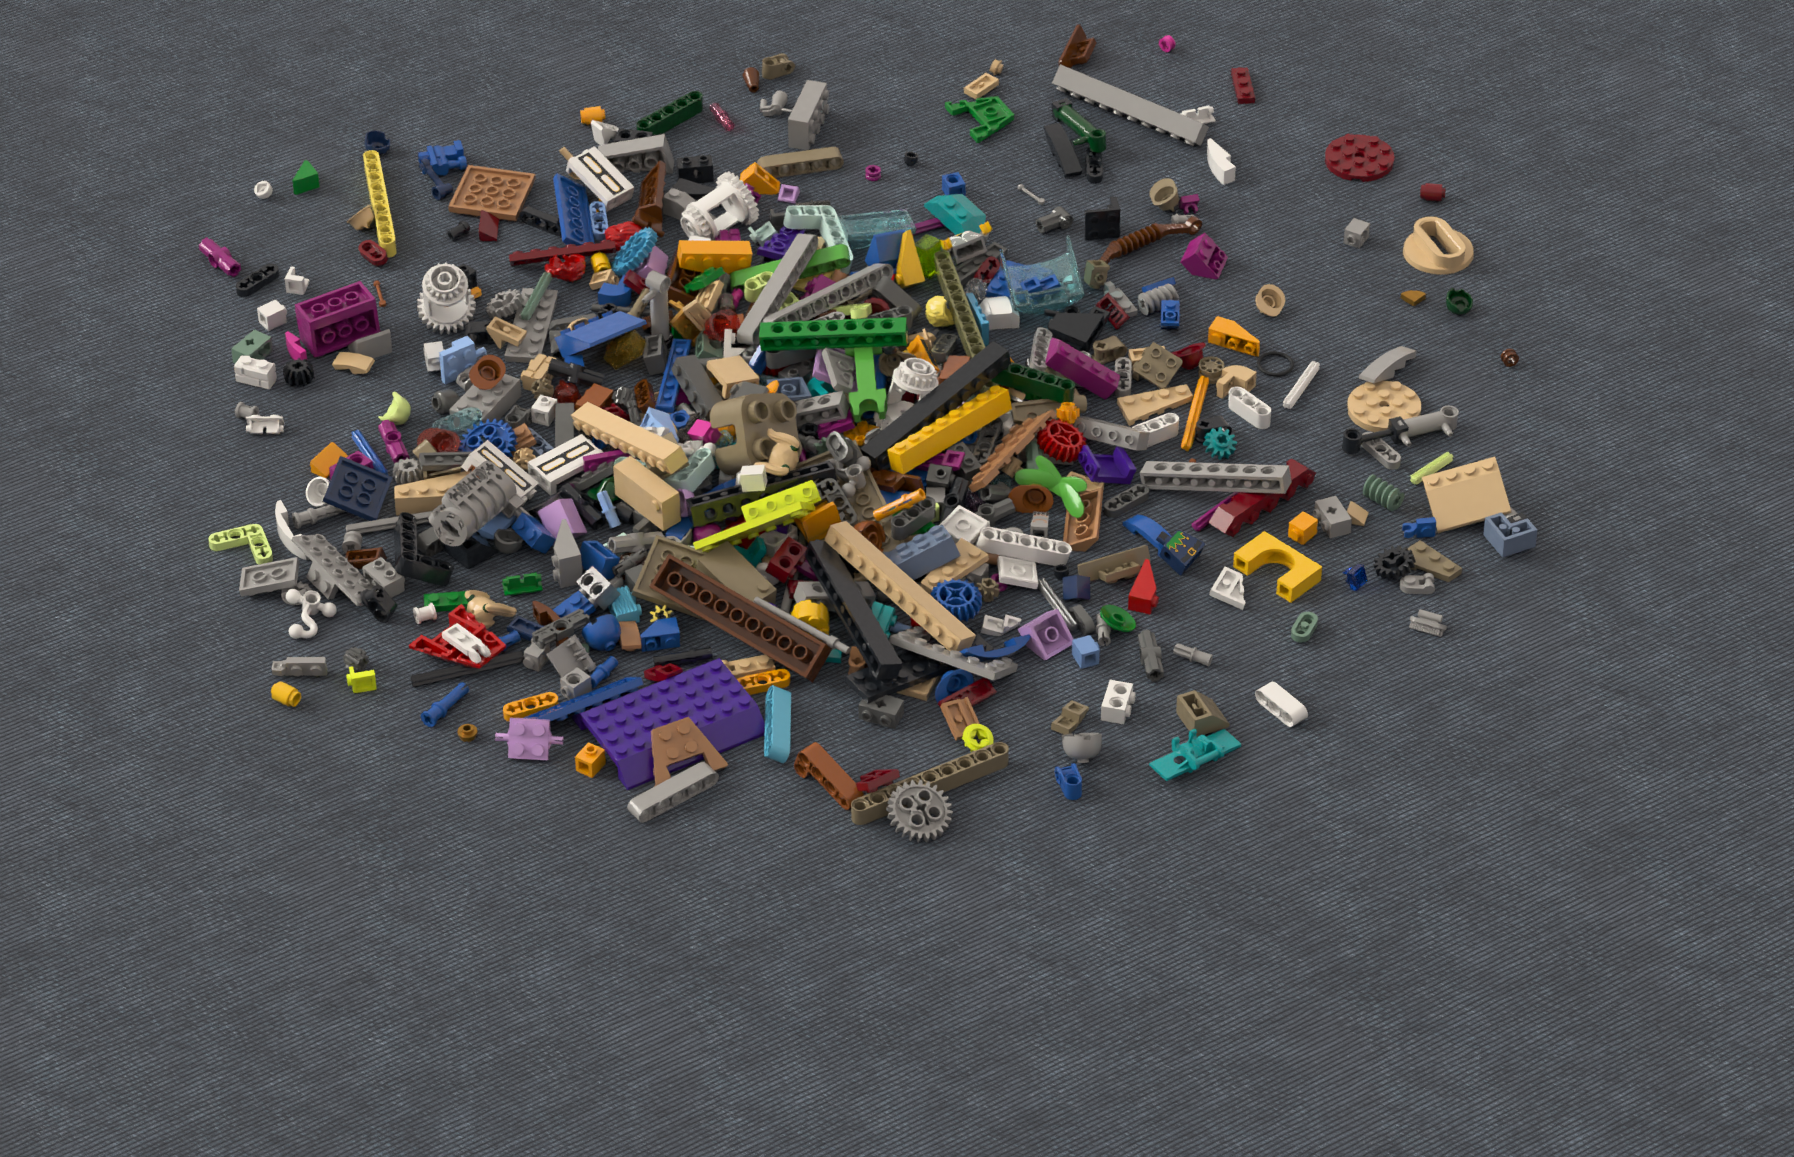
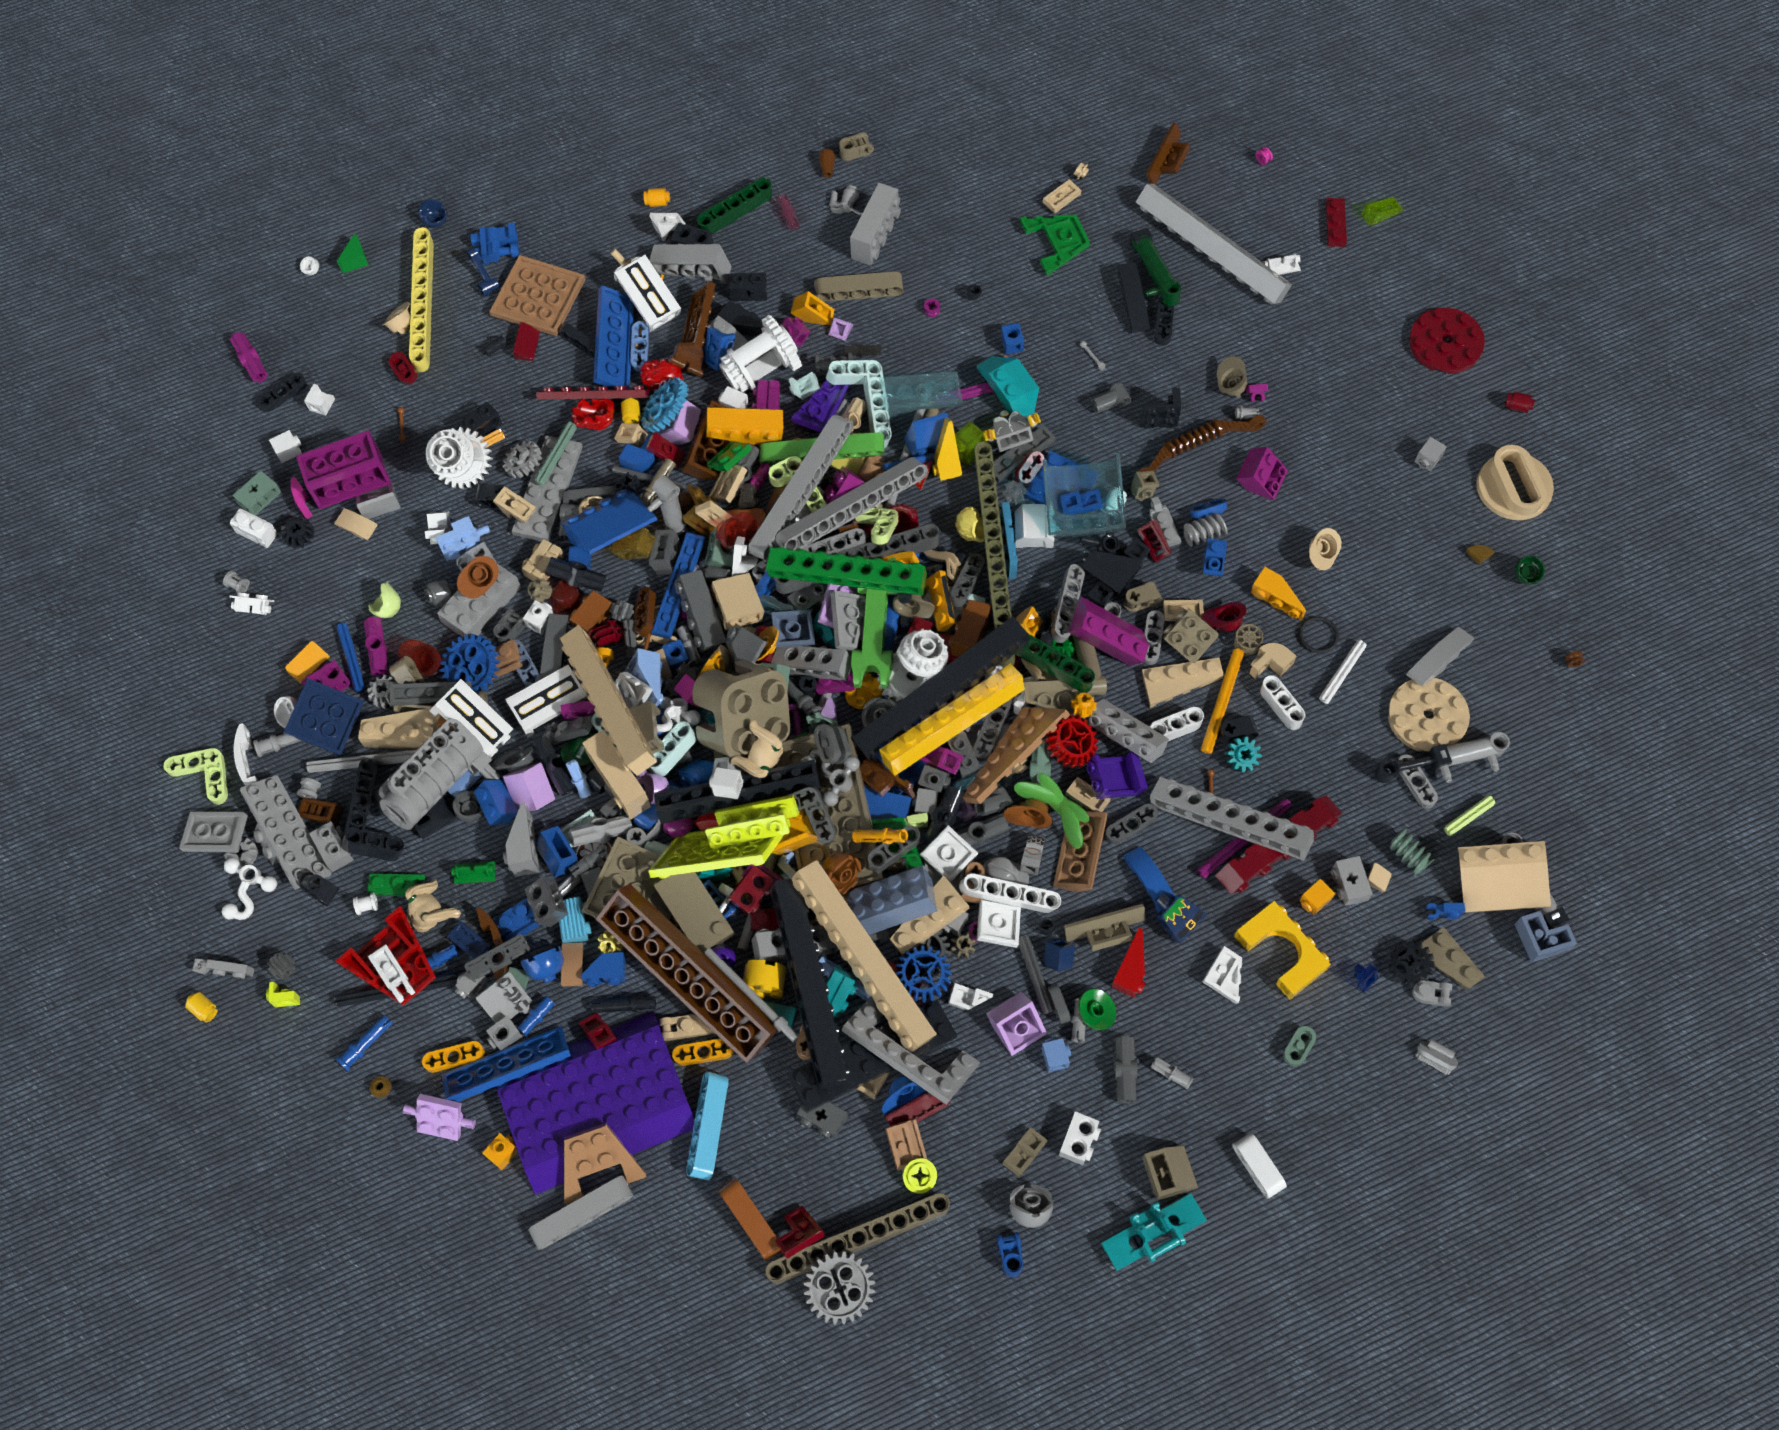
camera: 10 degrees right, 25 degrees up
(464, 423) = (448, 625): clear light blue beam -> none
(522, 457) = (505, 687): tan gear -> none
(673, 209) = (716, 346): none -> blue bracket
(895, 296) = (927, 504): dark grey beam -> none
(1010, 646) = (980, 1037): blue slope -> none
(1220, 163) = (1297, 334): white slope -> none
(1282, 74) = (1373, 217): none -> clear neon green slope

